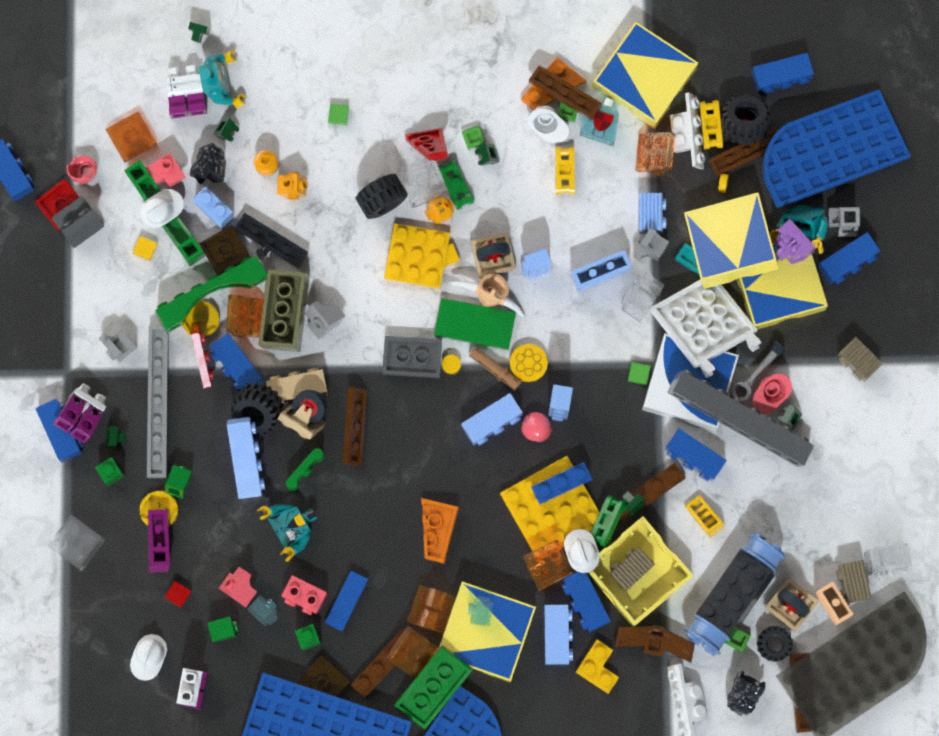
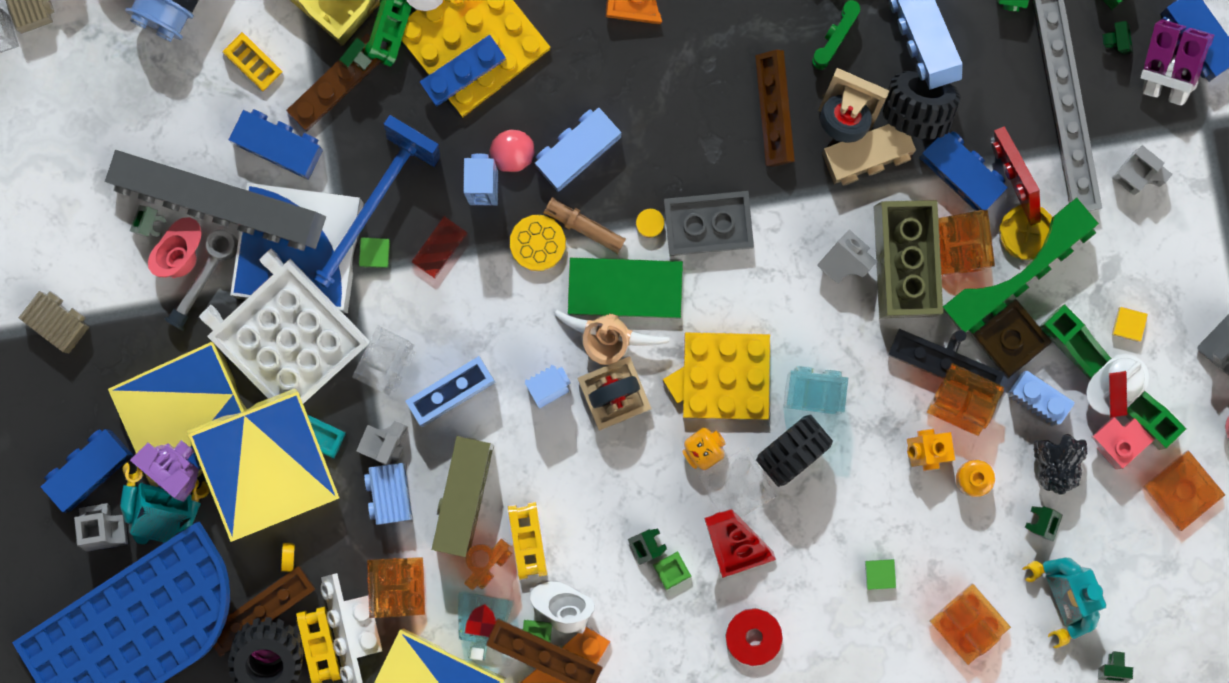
camera: 175 degrees right, 5 degrees up
(164, 198) = (1118, 394): none -> red window
(185, 86) = (1118, 568): hips -> none
(263, 213) = (965, 400): none -> clear orange plate
(286, 73) = (970, 624): none -> clear orange plate
(360, 233) = (816, 391): none -> clear light blue brick
(423, 77) = (754, 654): none -> red tile
(456, 185) = (686, 492): green plate -> none
(594, 370) = (439, 247): none -> clear red tile
(598, 151) = (497, 555): none -> clear orange plate
(603, 201) = (462, 496): none -> olive brick
(605, 437) = (410, 144): none -> blue tile

